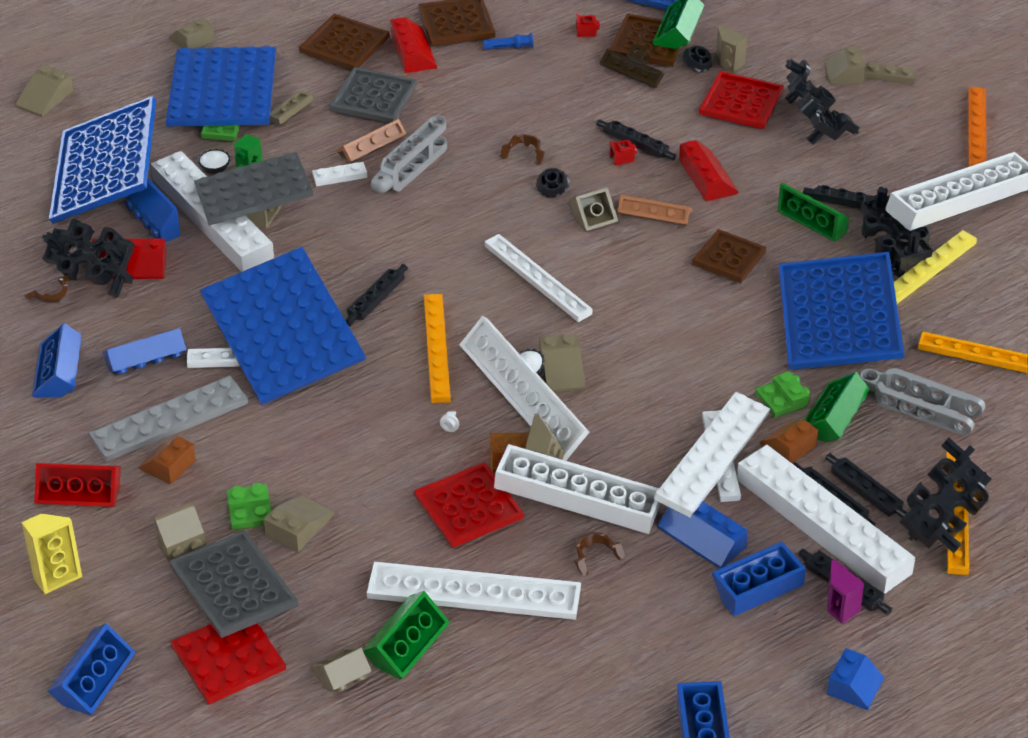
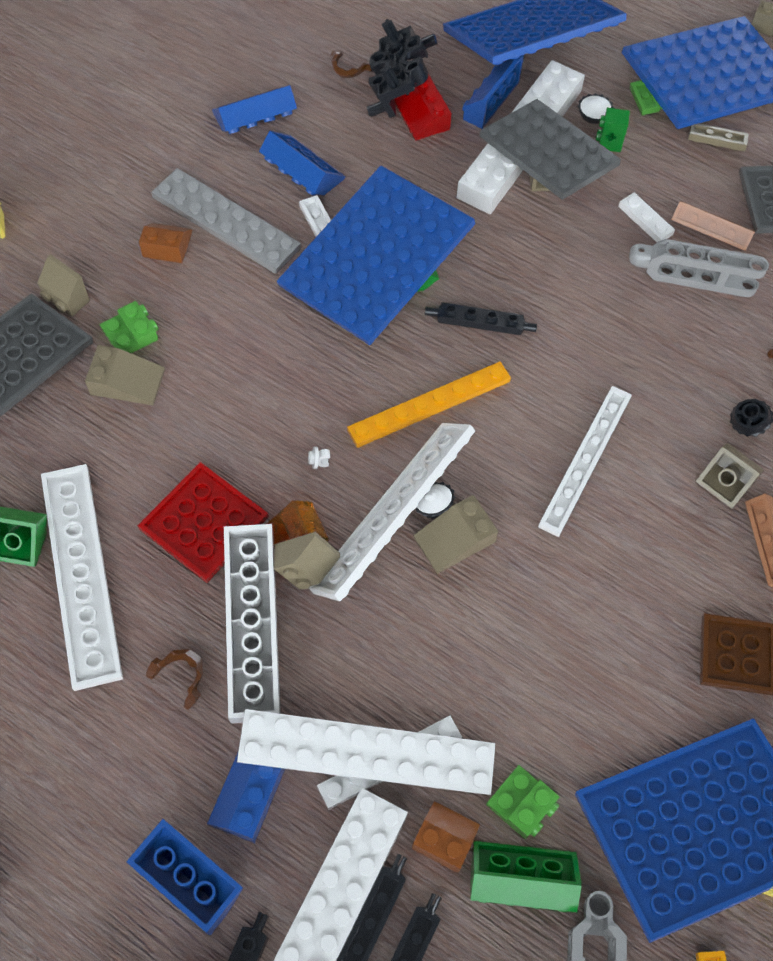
camera: 65 degrees right, 20 degrees up
(76, 484) = (107, 185): red slope -> none

